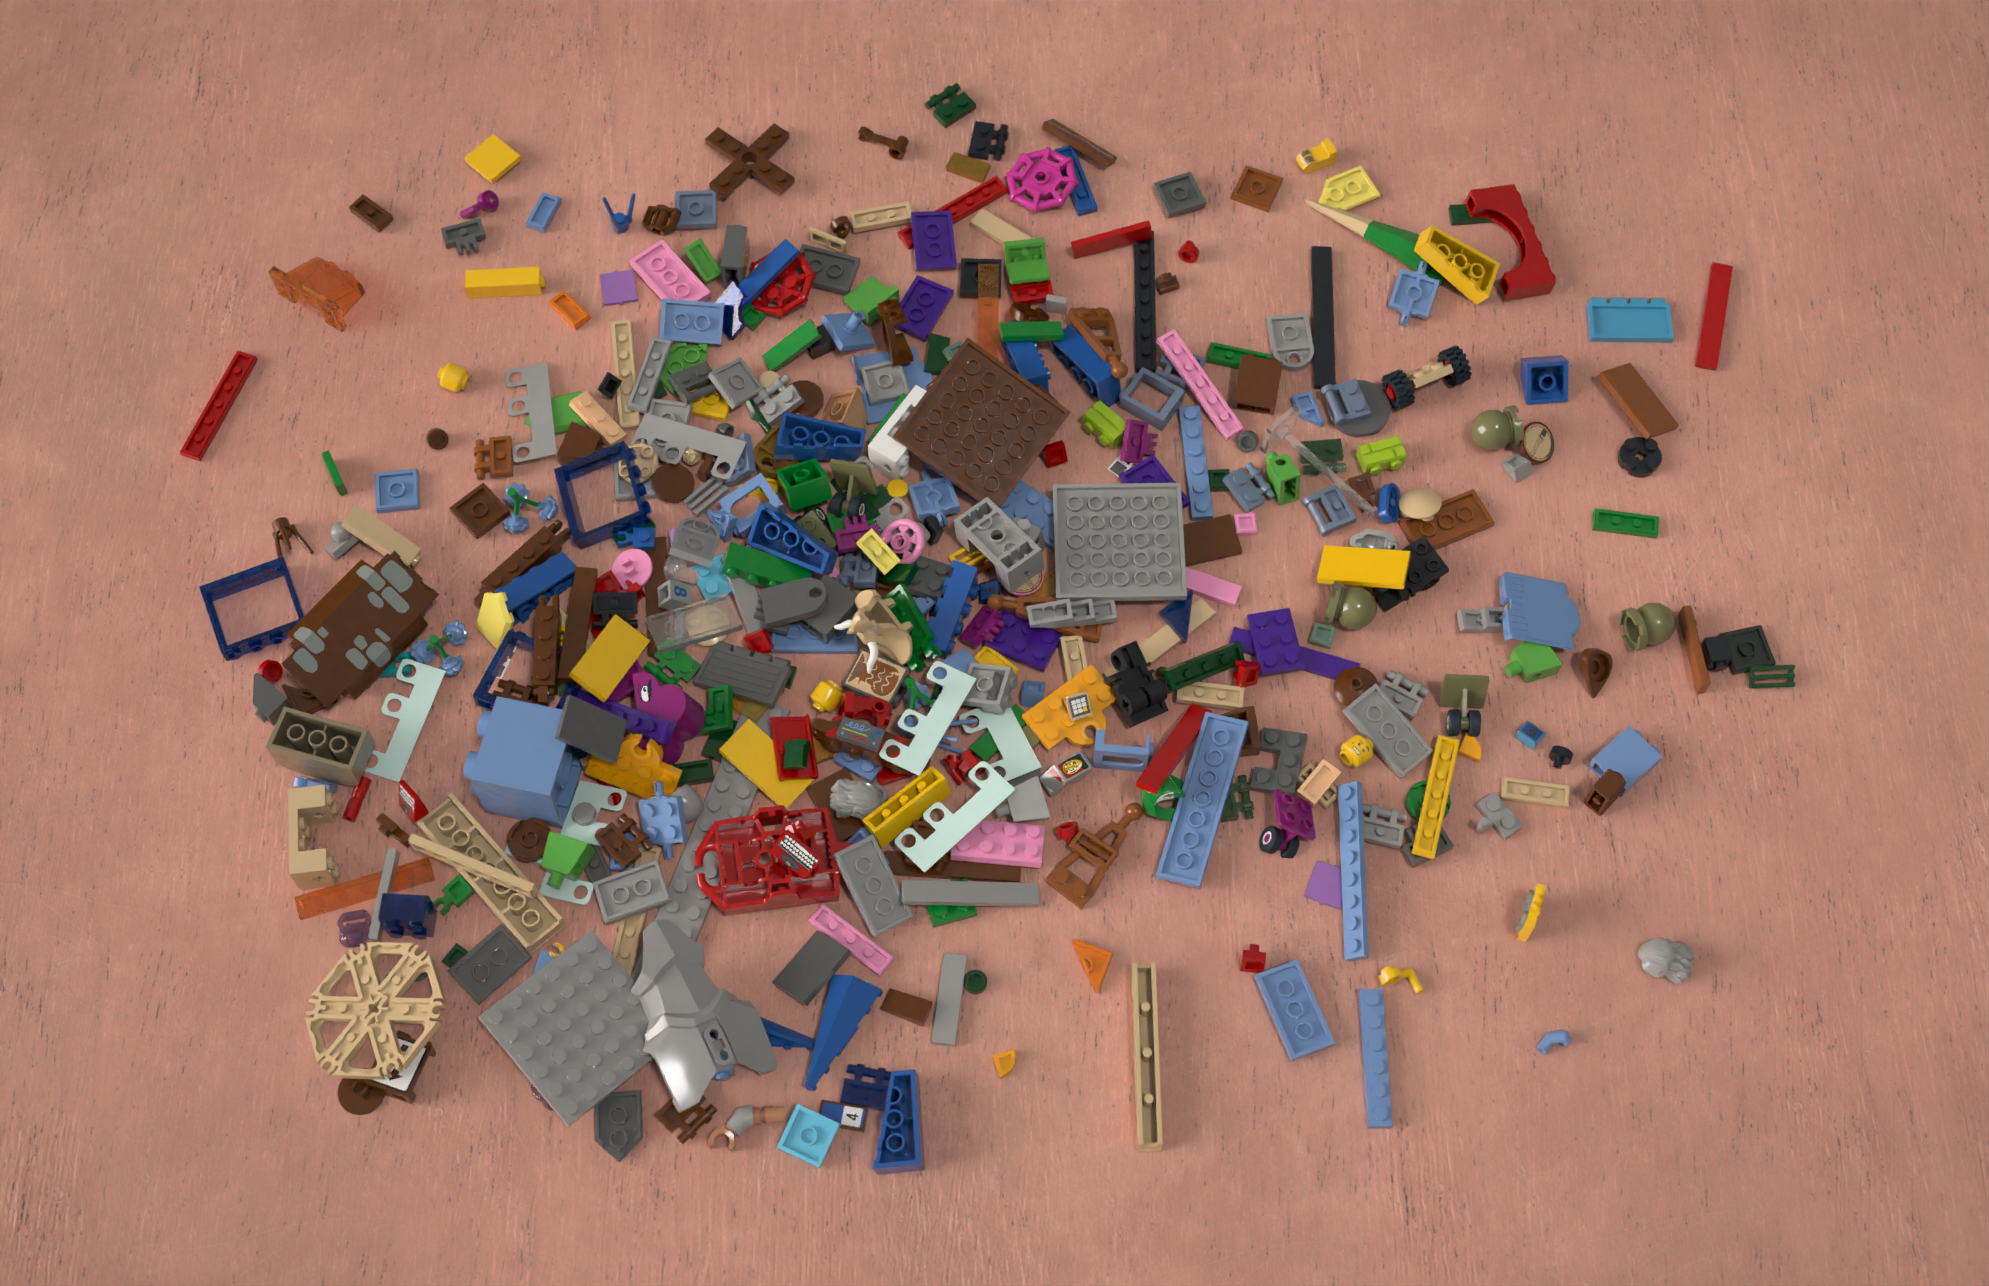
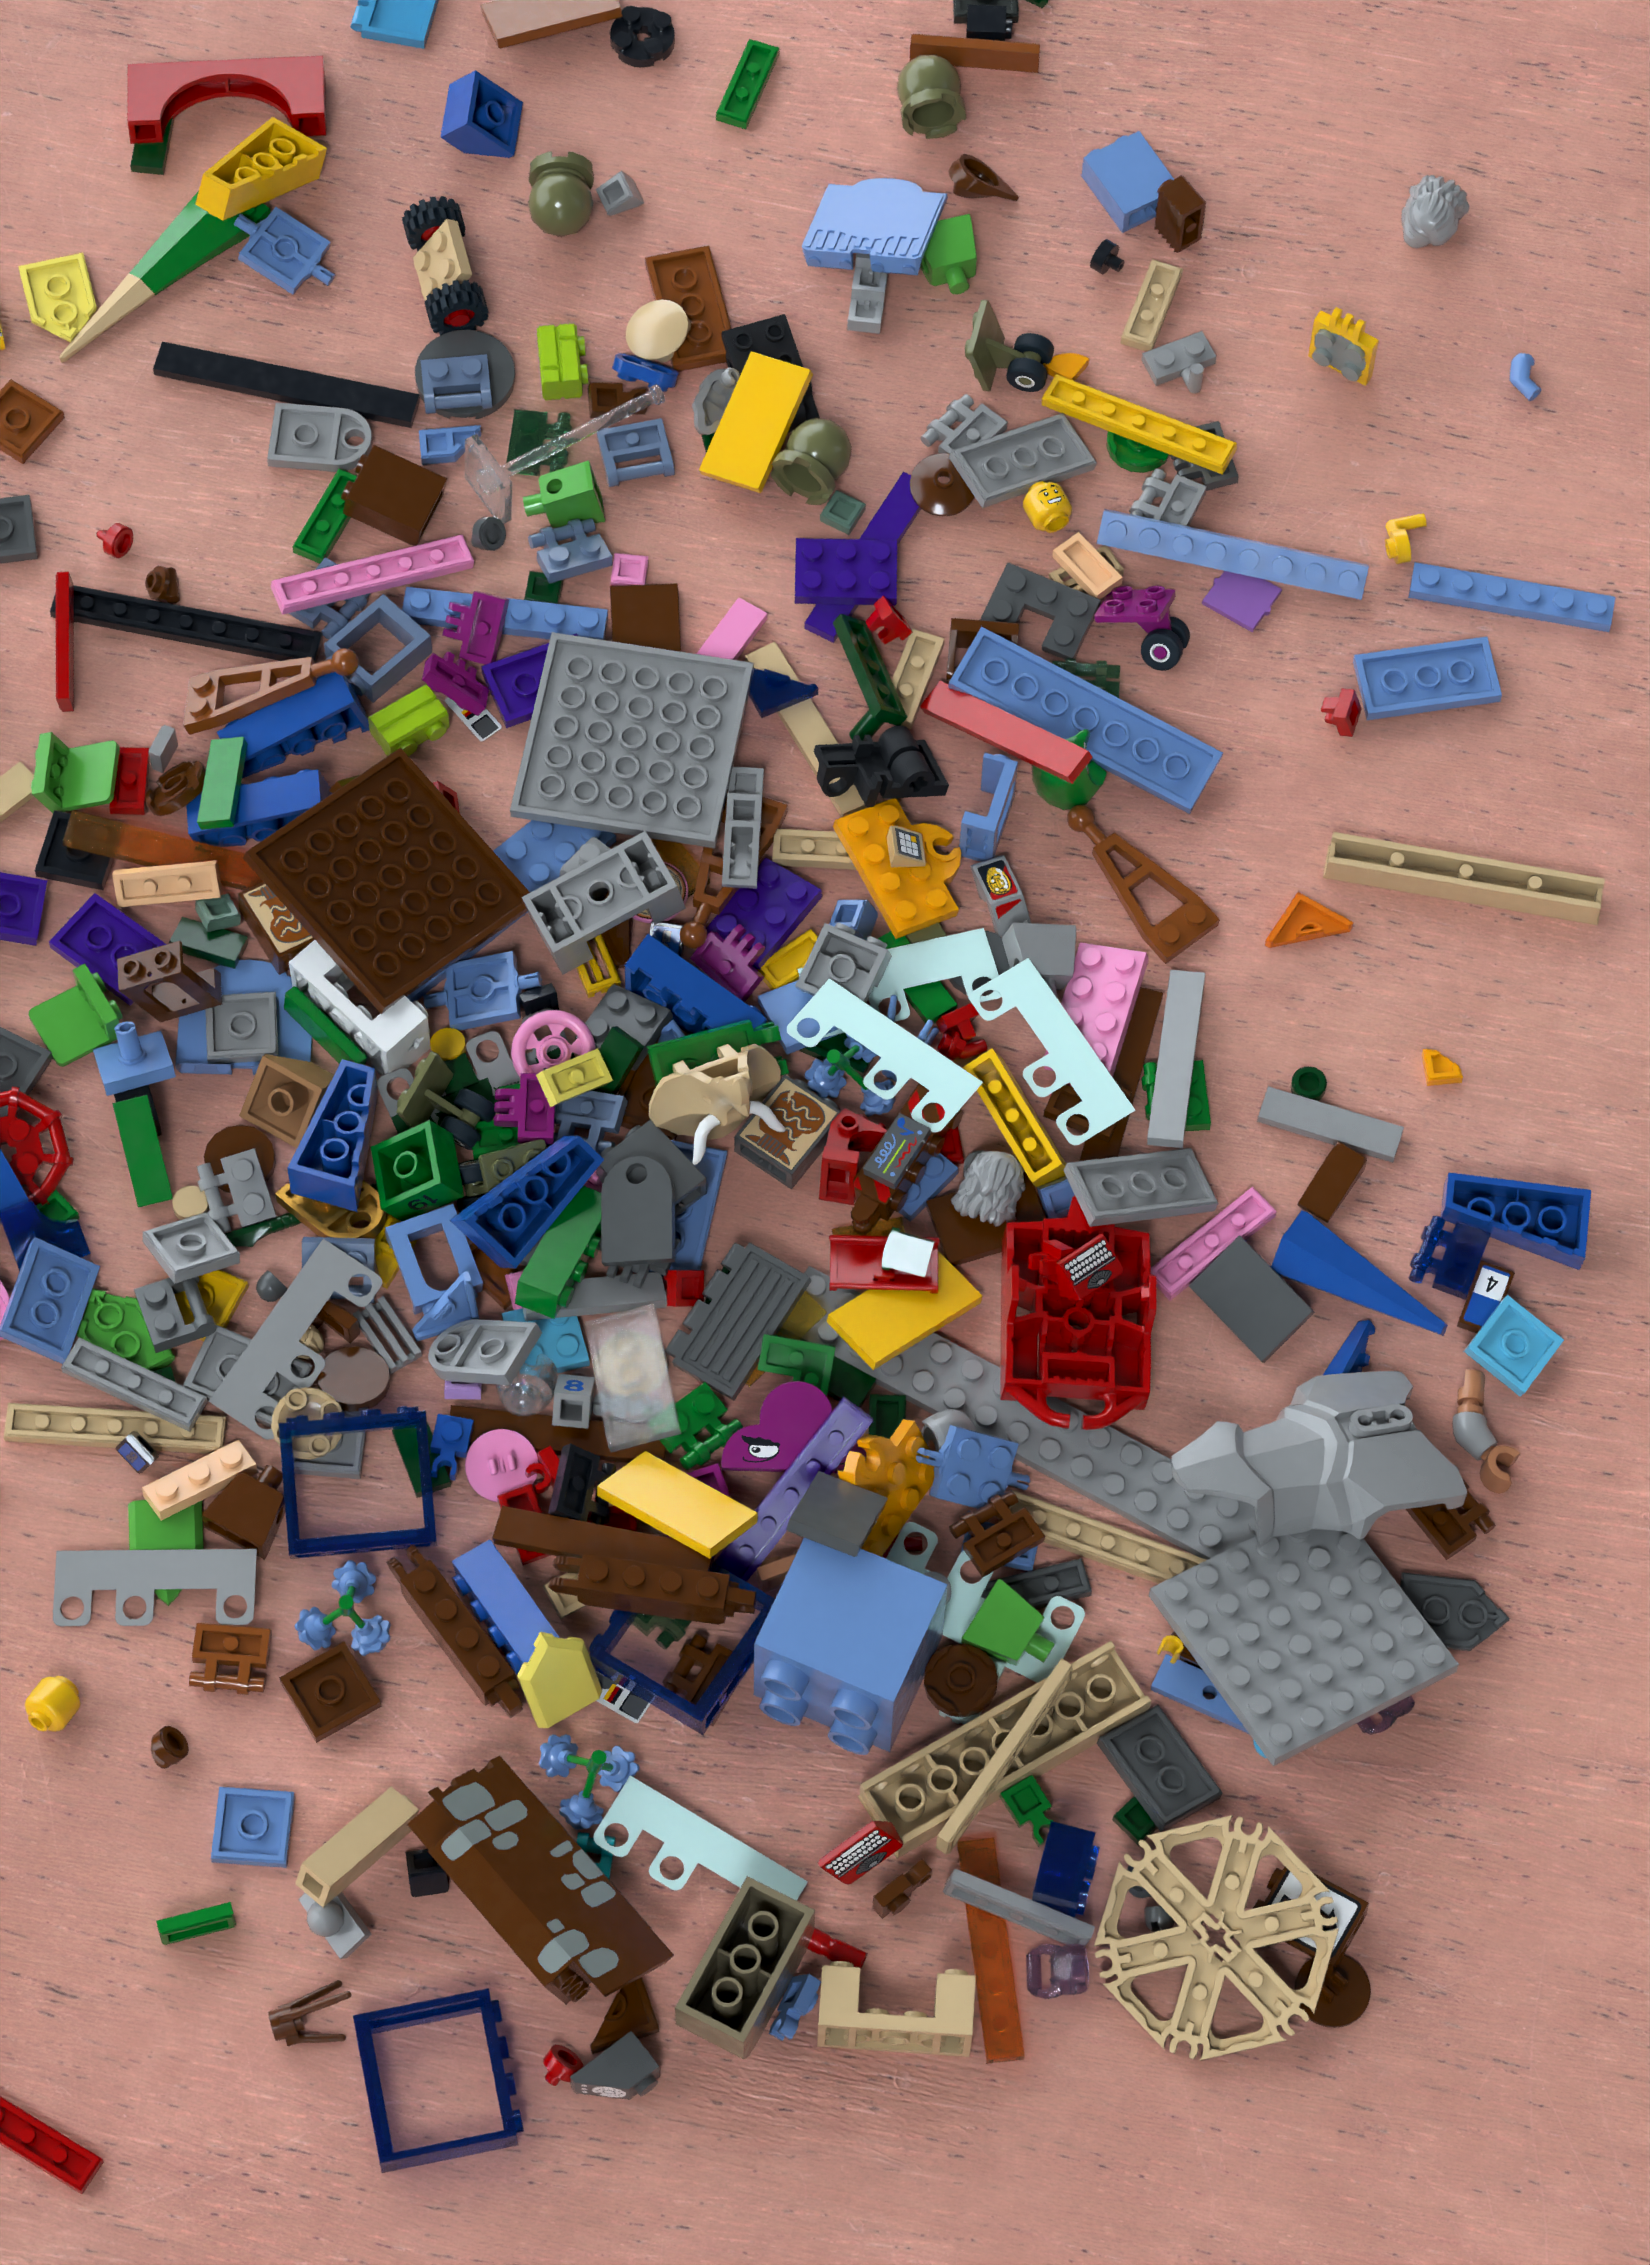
camera: 80 degrees left, 0 degrees up
(632, 892) = (1081, 1537): light grey tile -> none
(826, 696) = (801, 1206): yellow head -> none
(966, 320) = (167, 883): none -> light nougat plate
(1067, 831) = (1095, 911): red tile -> none
(1109, 860) = (1117, 898): dark orange tile -> none
(1179, 446) = (478, 626): none -> magenta hinge
(1530, 735) = (1062, 288): slope -> none
(1537, 442) = (603, 157): piece -> none

